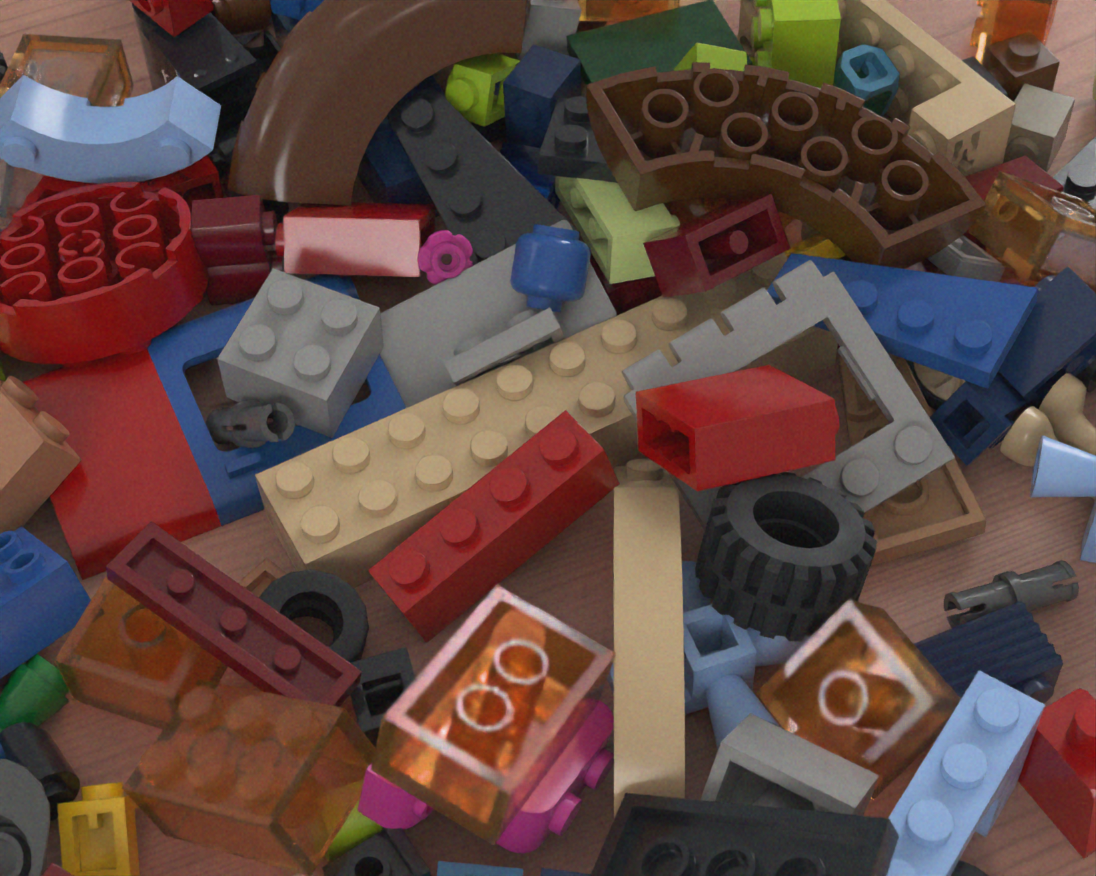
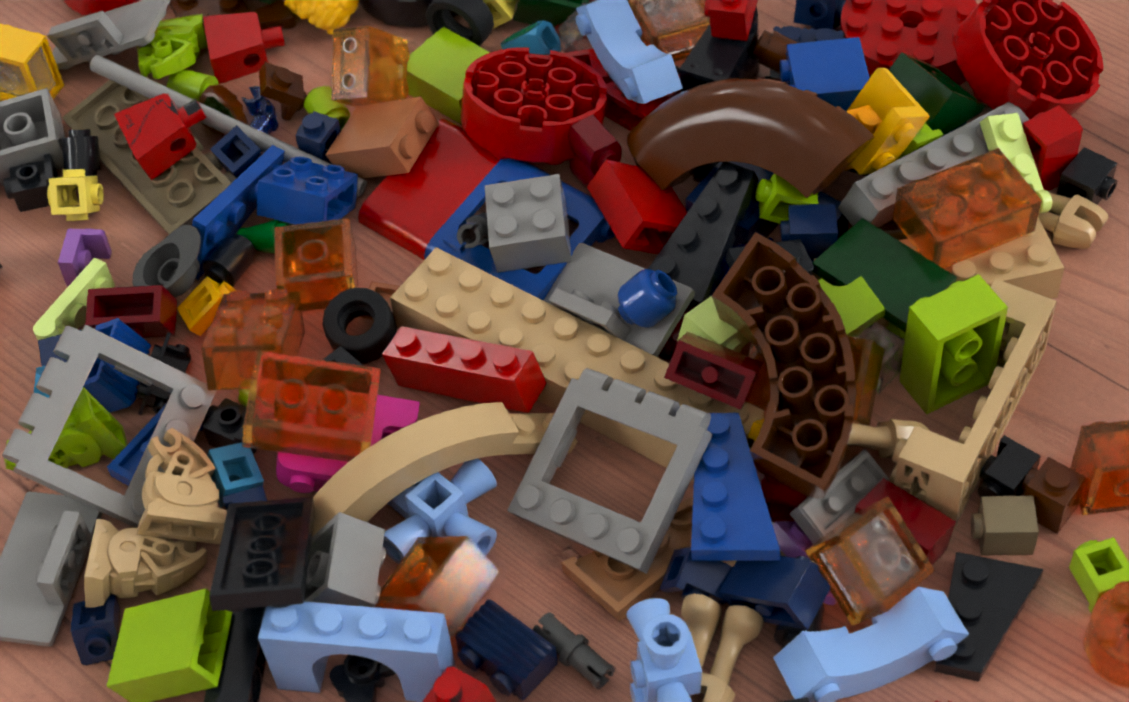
camera: 65 degrees right, 0 degrees up
(230, 620) = (323, 283): dark red plate -> none
(435, 247) = (645, 248): dark pink plate -> none
(736, 426) = (563, 434): red brick -> none
(783, 554) = (505, 473): black tyre -> none
(869, 75) = (956, 401): dark azure rock -> none

